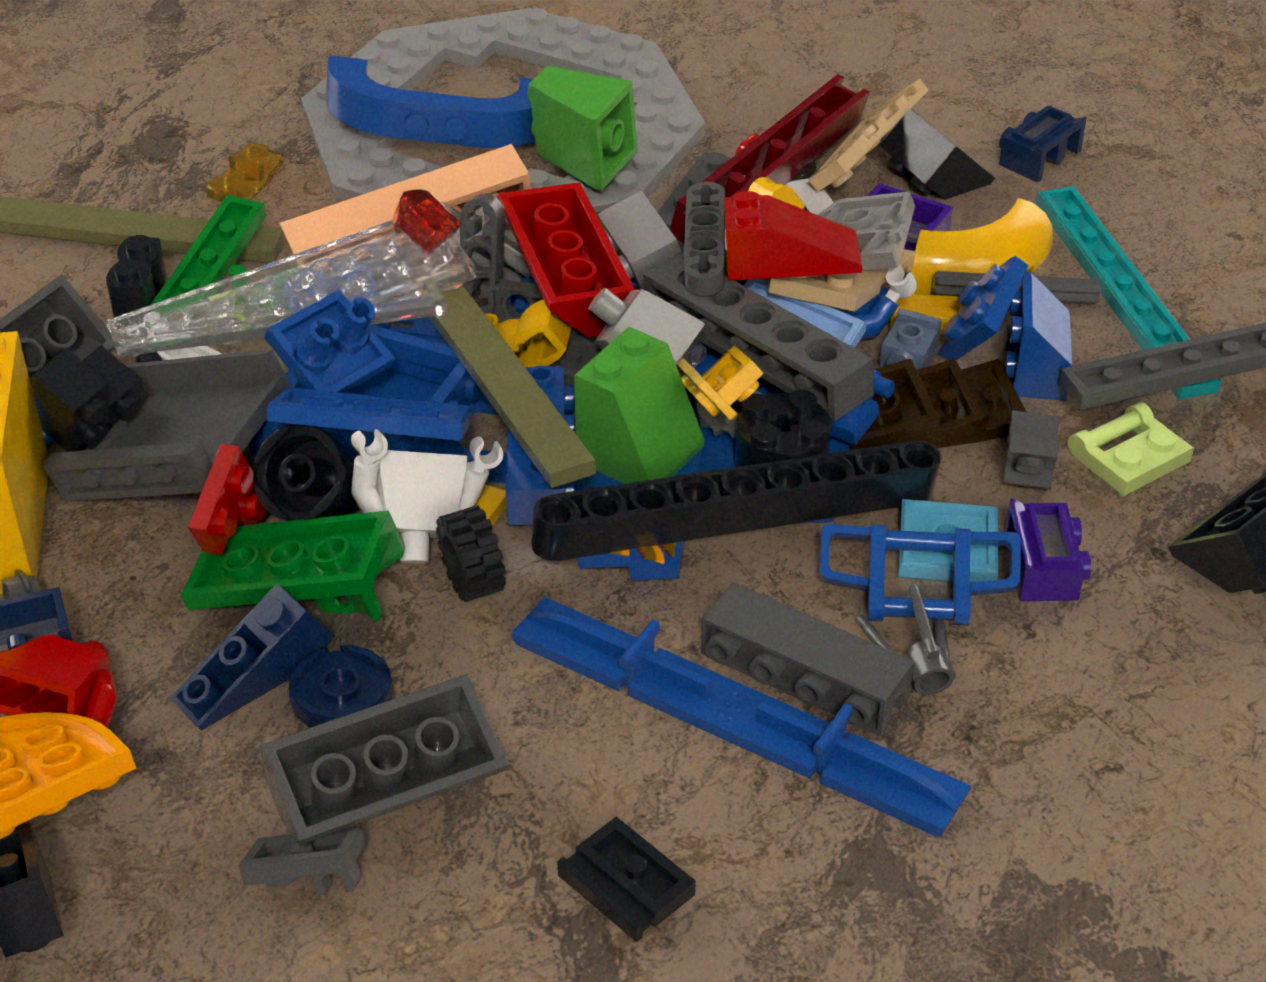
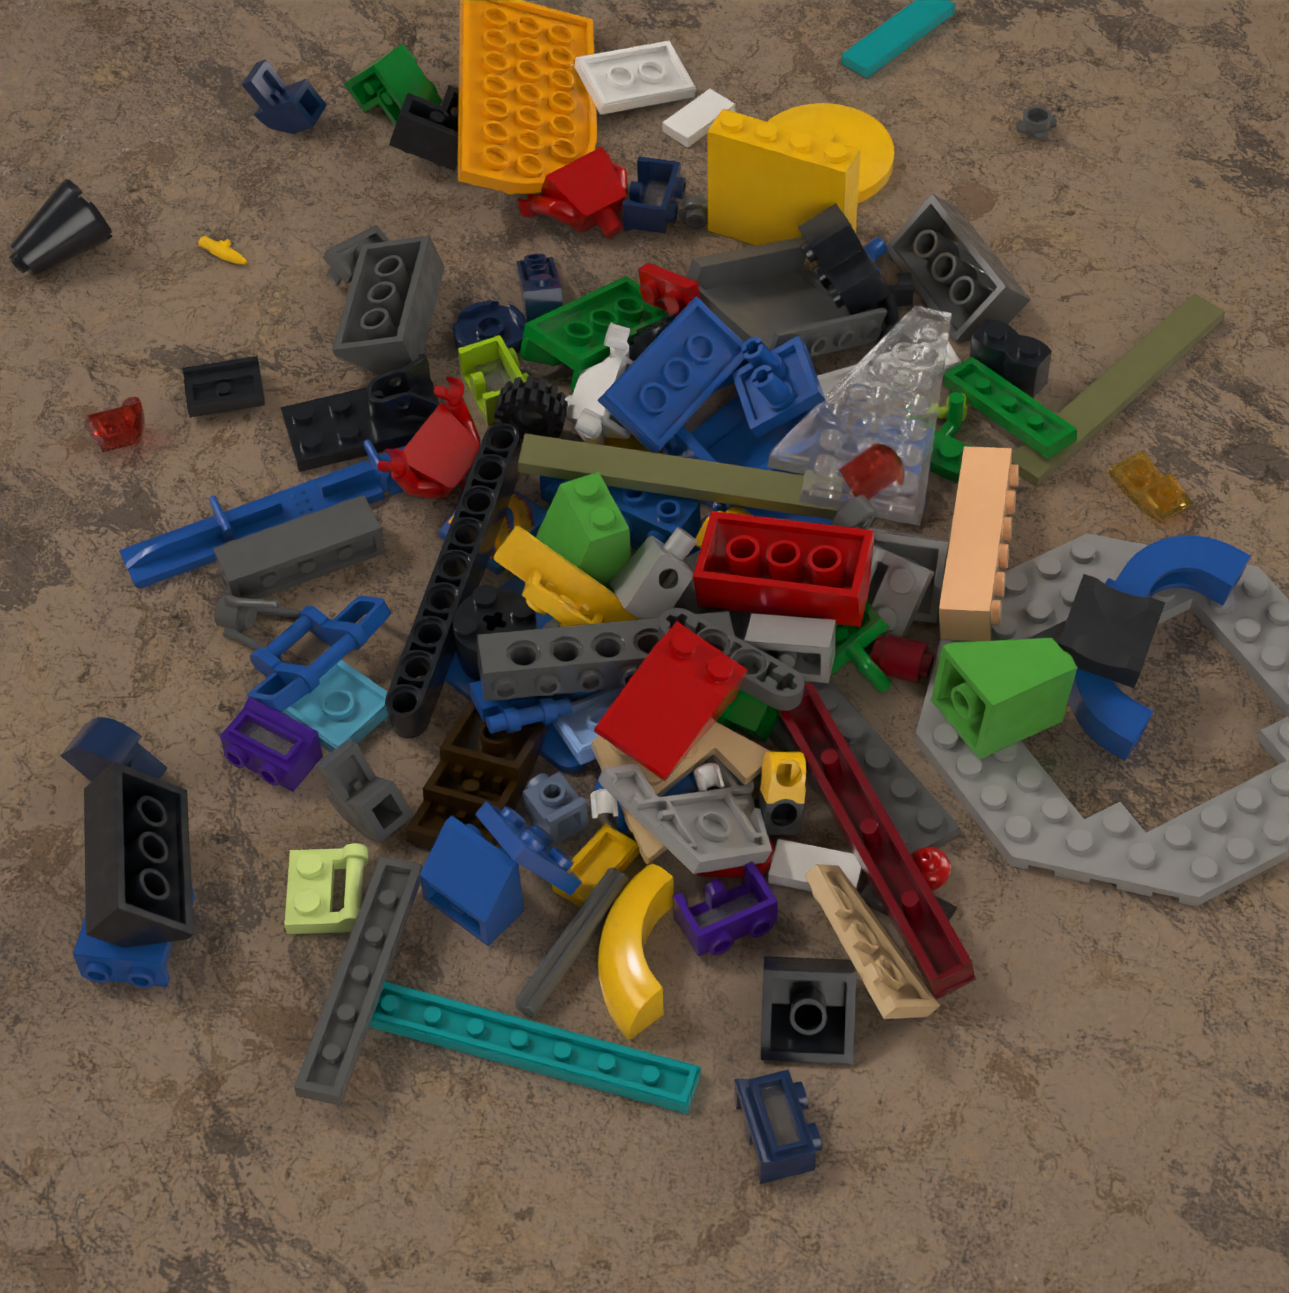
camera: 125 degrees right, 10 degrees up
(430, 626) = (485, 371): none -> lime window
(483, 82) = (1110, 631): none -> black brick
(572, 722) = (383, 412): none -> black plate
(595, 590) = (440, 450): none -> red torso
(779, 942) = (117, 426): none -> clear red plate
(1190, 645) = (109, 741): none -> dark blue brick

